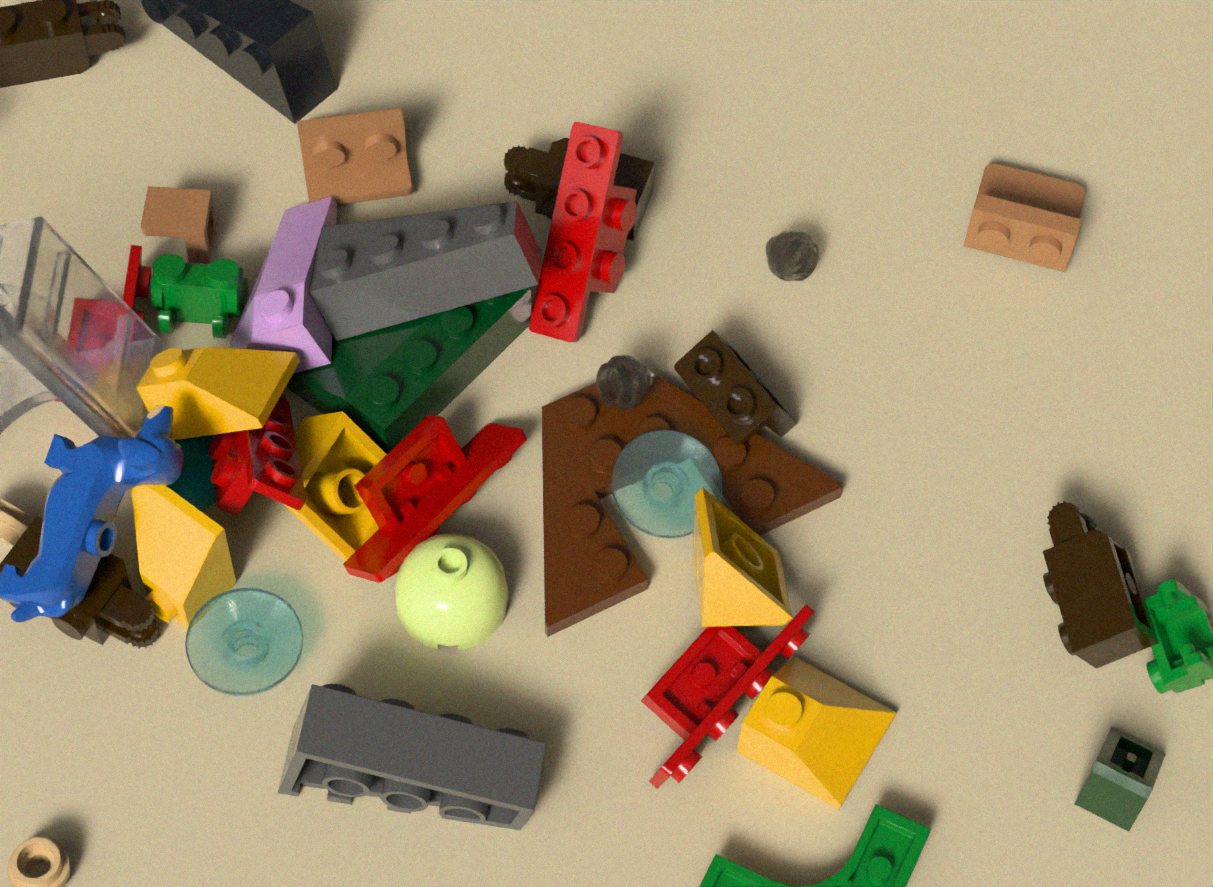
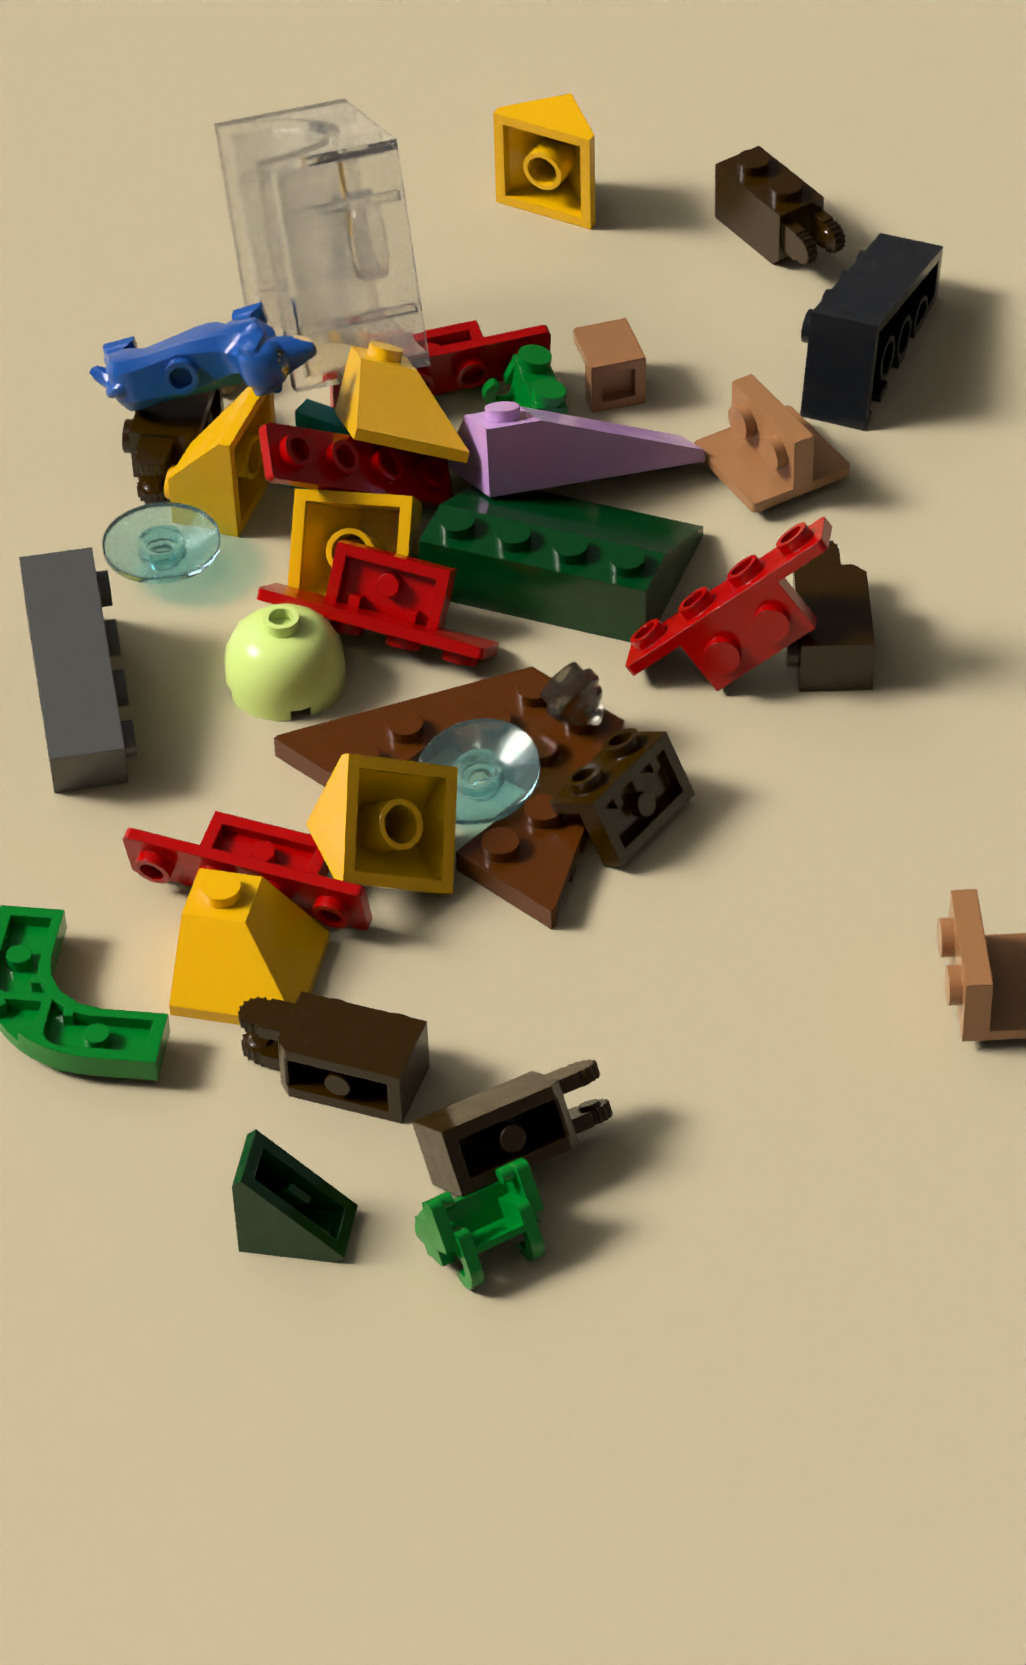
camera: 75 degrees right, 15 degrees down
(420, 265) = (607, 492): dark grey wedge -> none
(792, 255) = (836, 800): clear smoke plate -> none
(959, 685) = (339, 1052): none -> dark brown hinge

